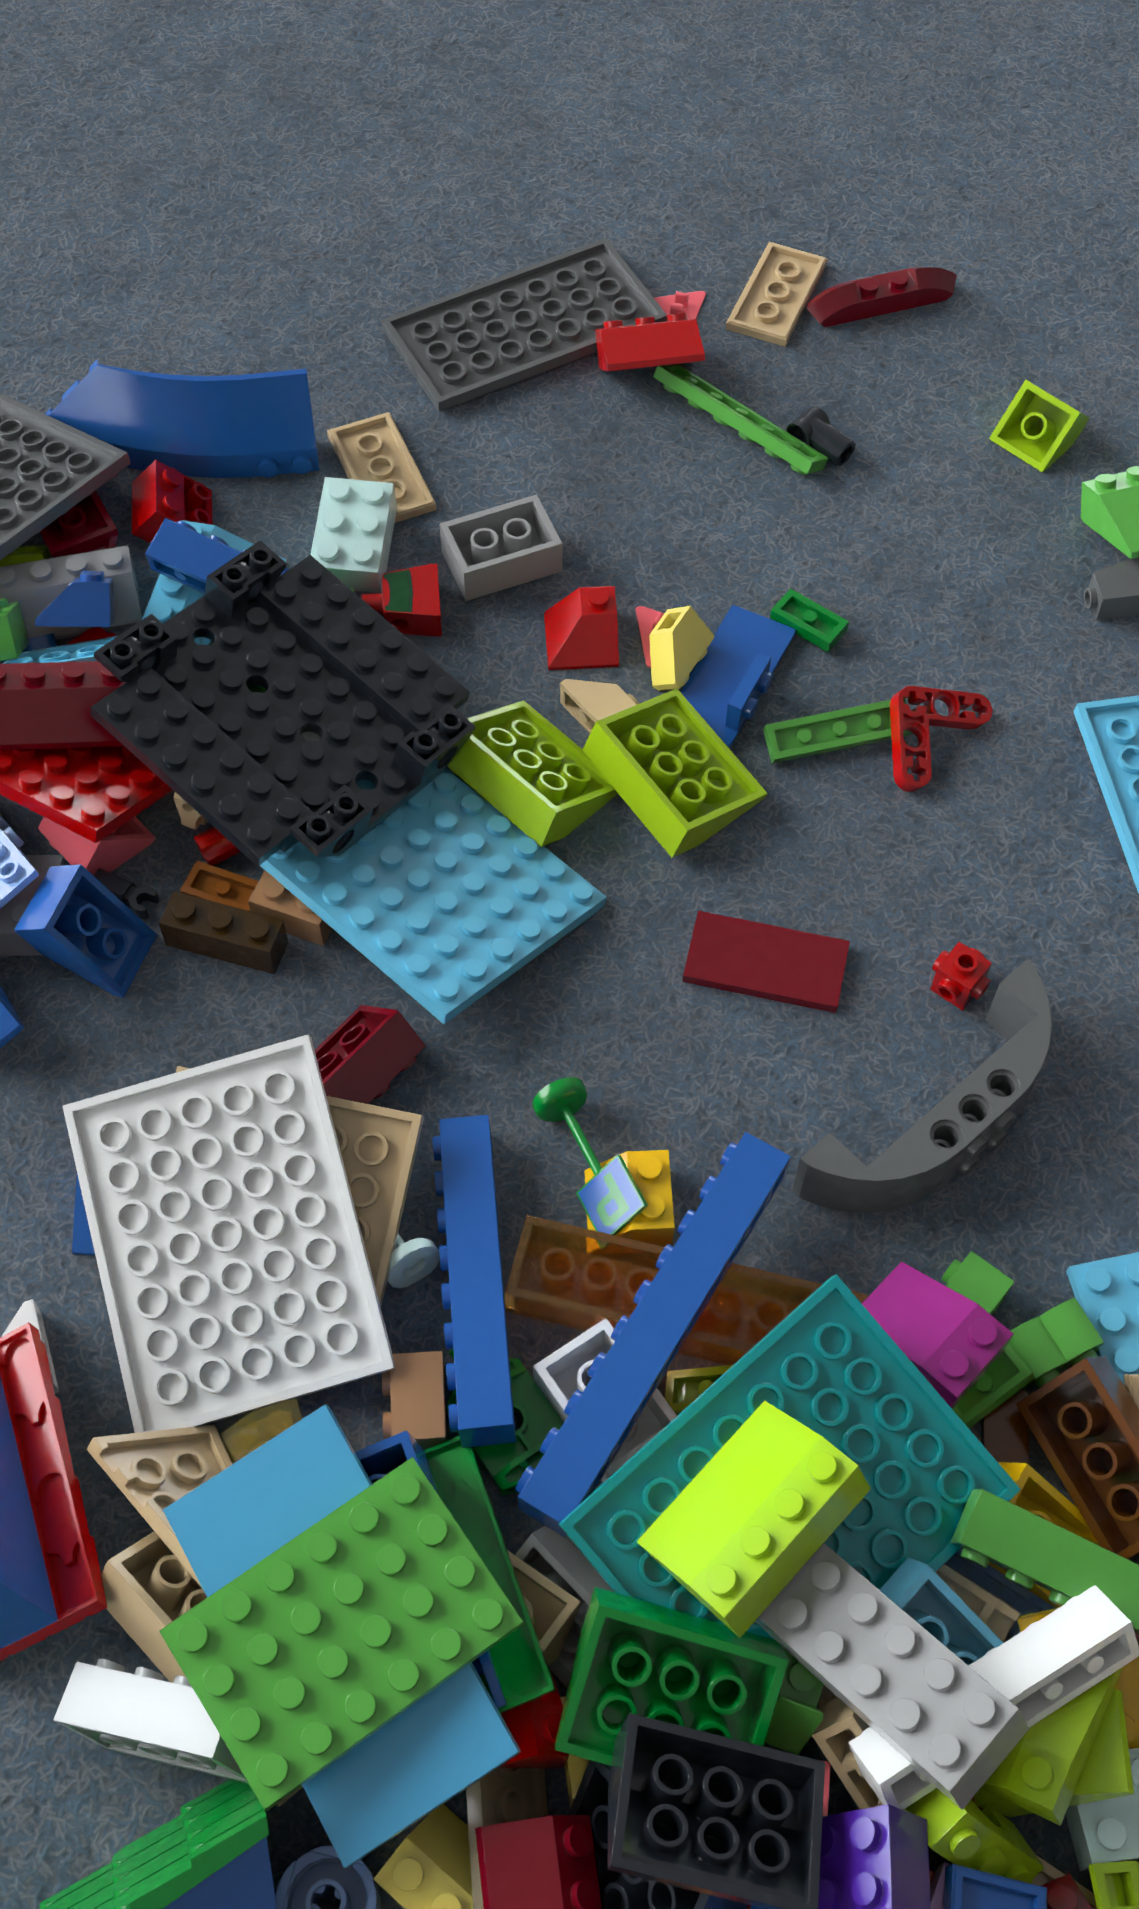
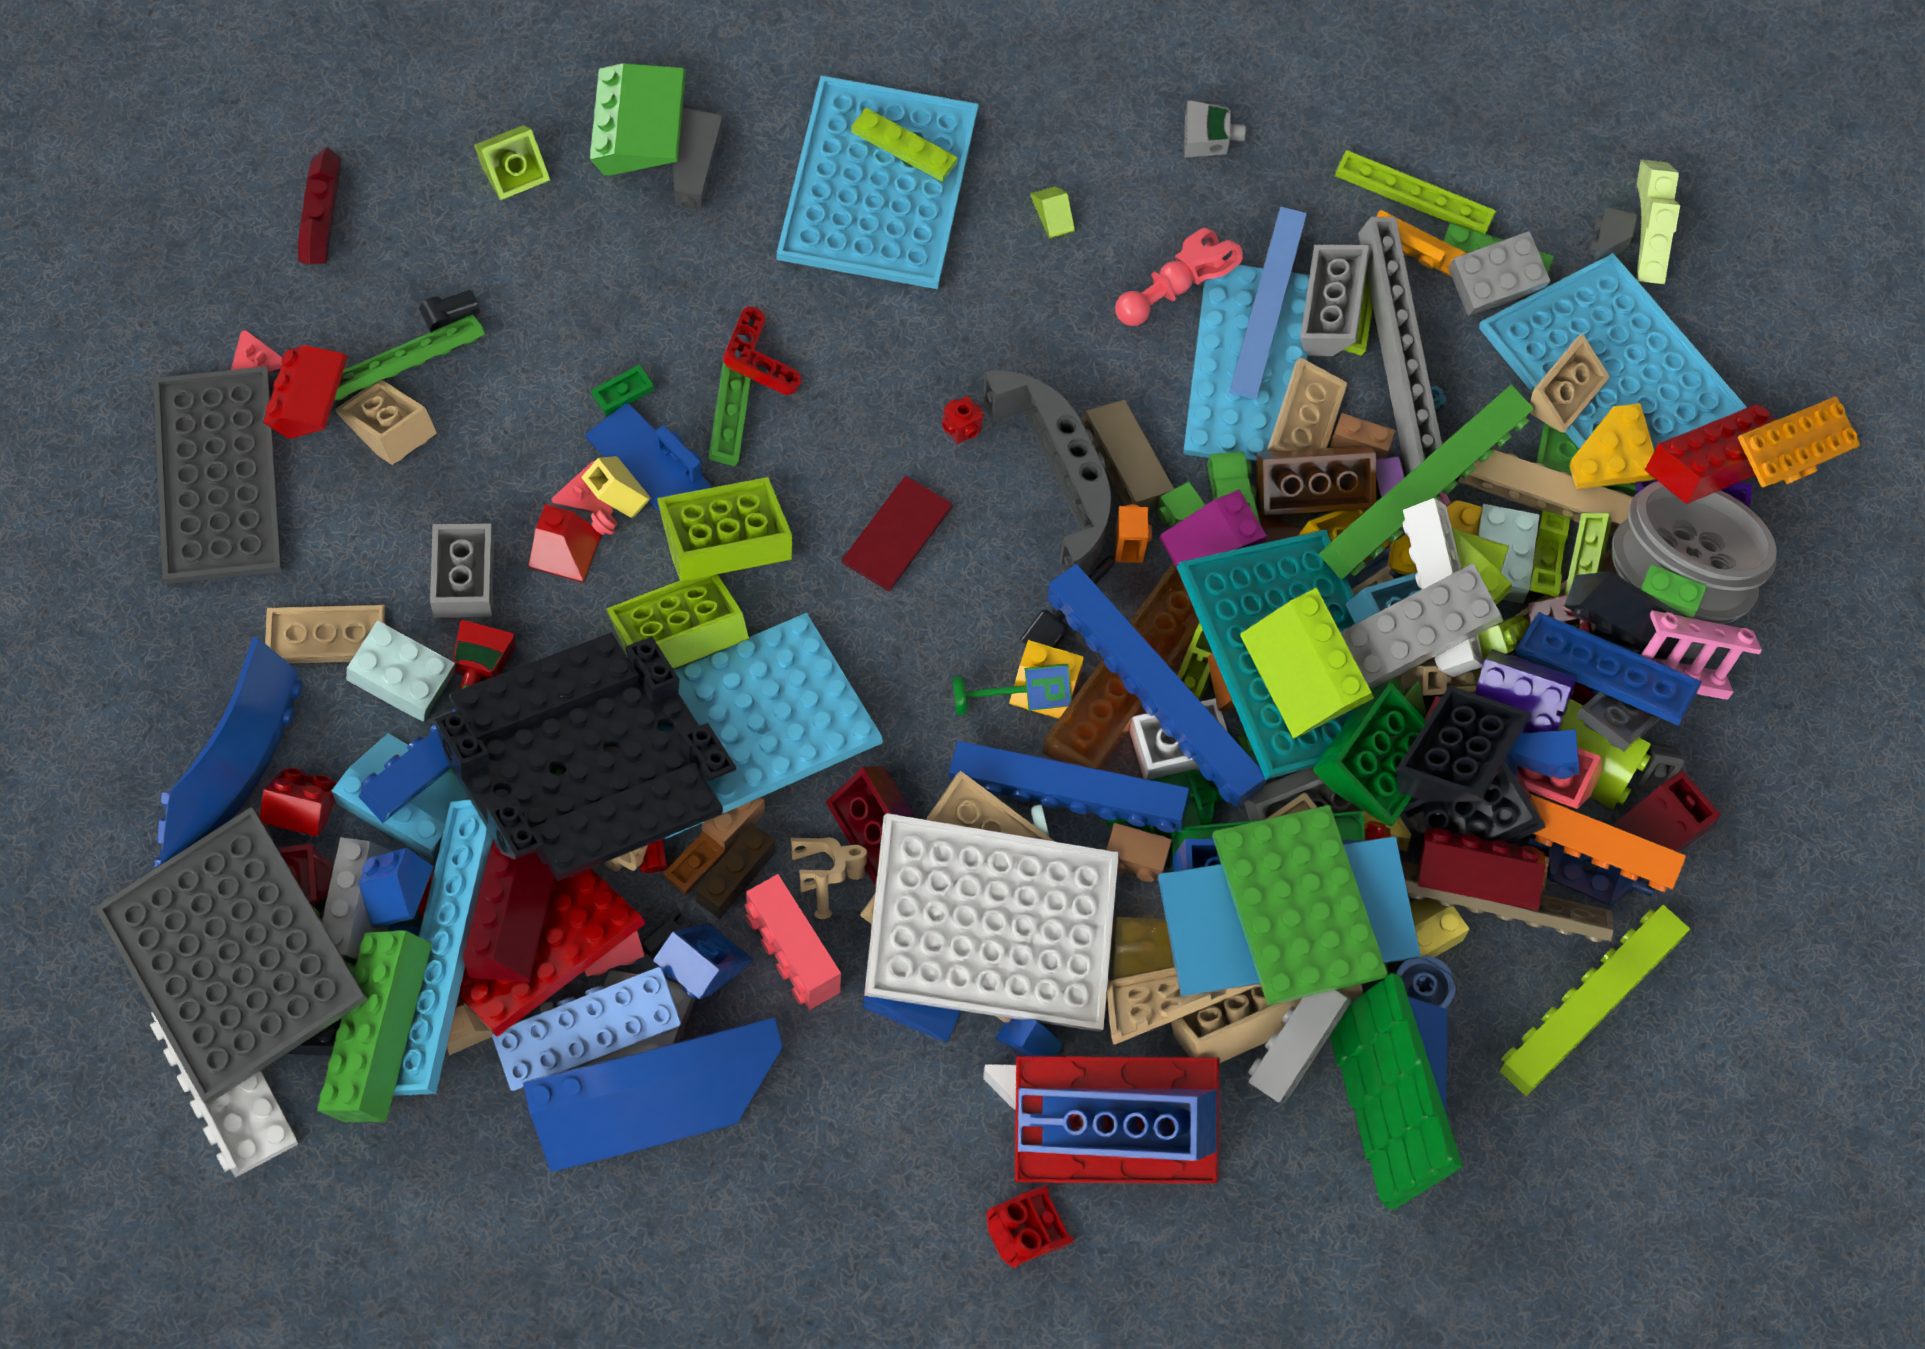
camera: 75 degrees left, 5 degrees up
(91, 1358) = (1029, 1038): none -> blue slope
(139, 1017) = (792, 942): none -> coral brick
(248, 1036) = (847, 860): none -> tan piece
(593, 700) = (644, 557): tan slope -> none
(628, 657) = (603, 522): none -> coral plate
(654, 432) = (387, 421): none -> tan slope
(694, 1171) = (1049, 628): none -> black piece
(776, 294) = (274, 279): tan tile -> none
(893, 1229) = (1131, 534): none -> orange brick
(1016, 1192) = (1127, 455): none -> dark tan brick

